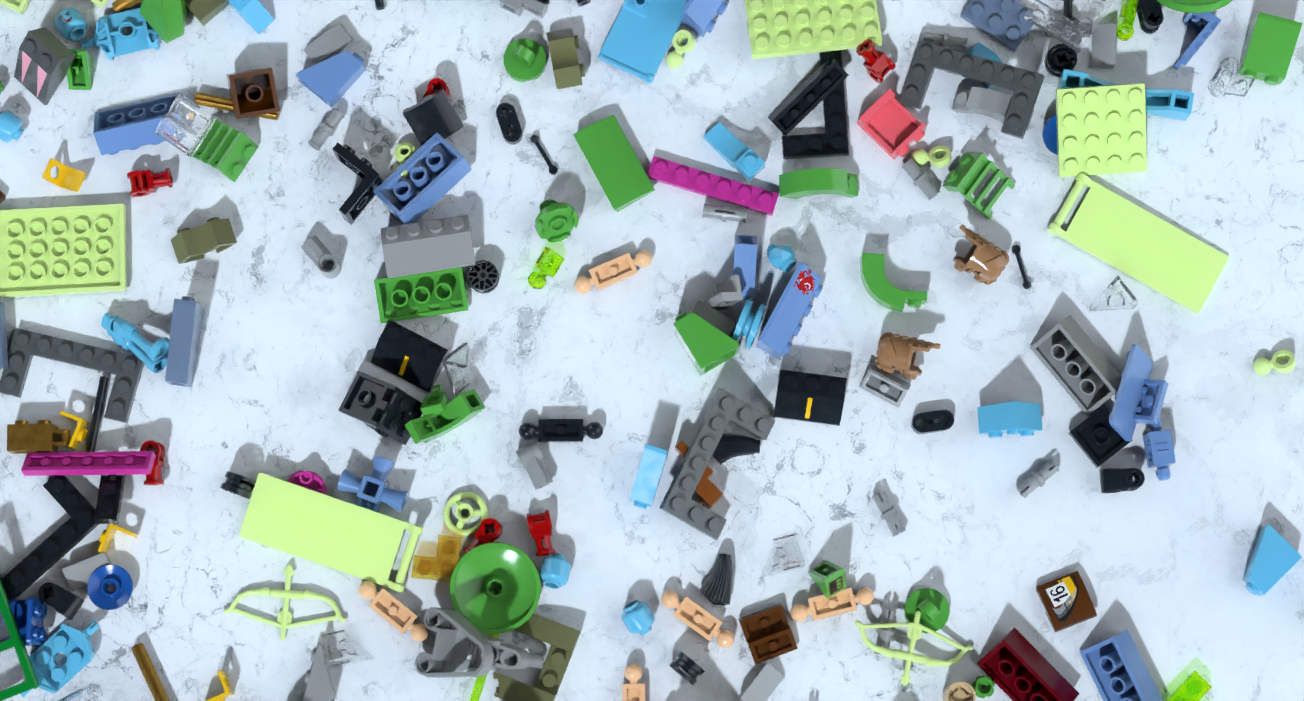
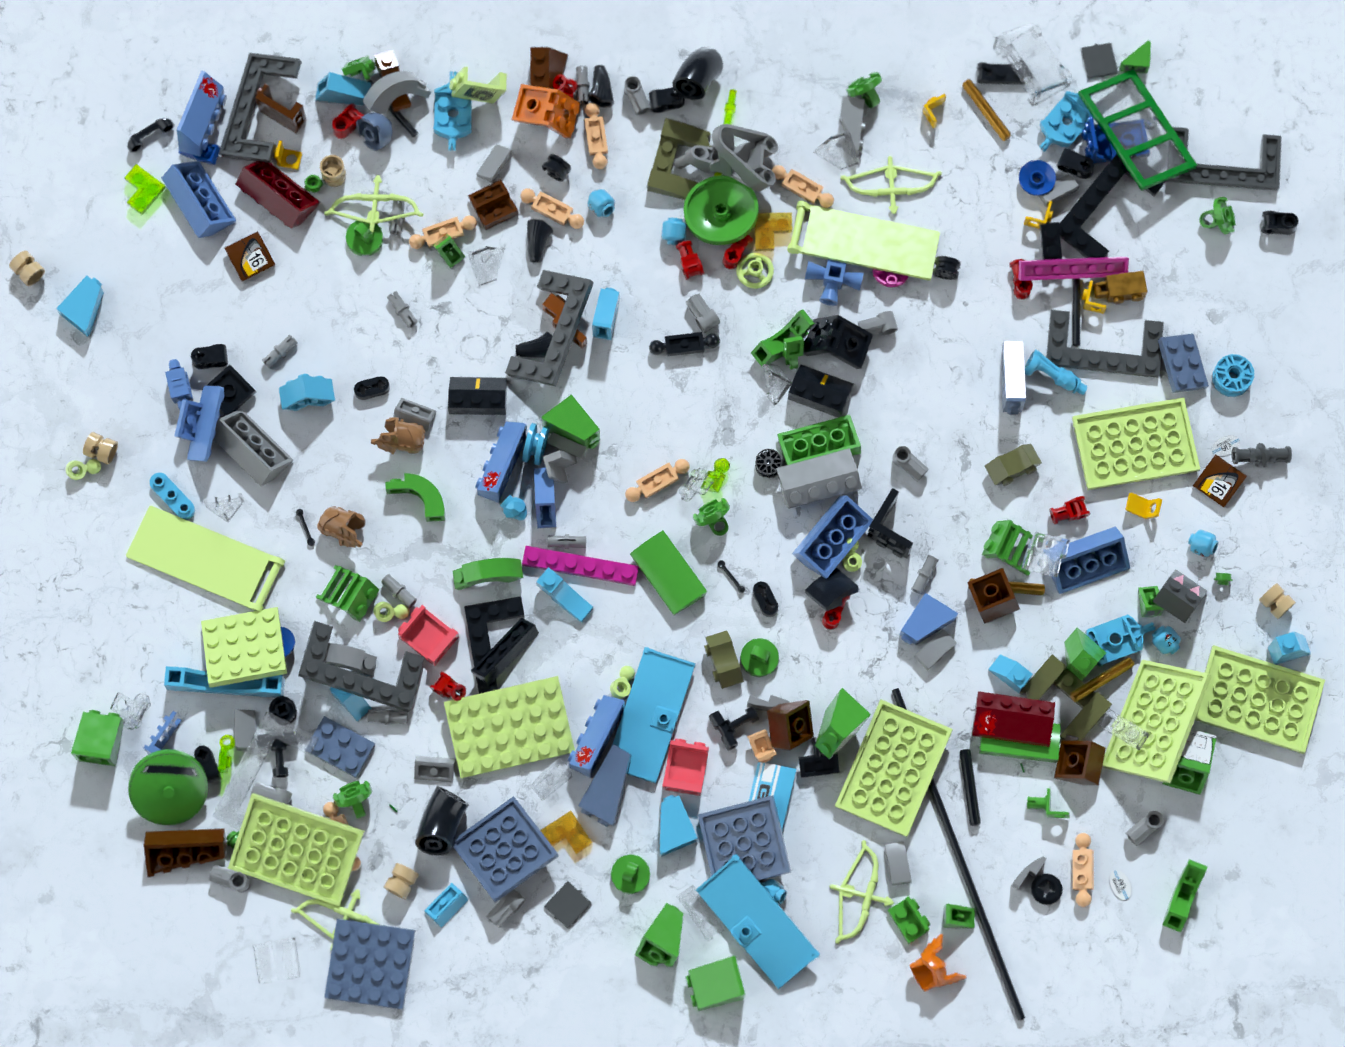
camera: 170 degrees right, 5 degrees down
(325, 427) = (883, 323): none -> light grey piece
(576, 255) = (694, 483): none -> clear bracket
(1174, 330) = (175, 503): none -> medium azure plate
(1255, 383) = (99, 447): none -> tan wheel

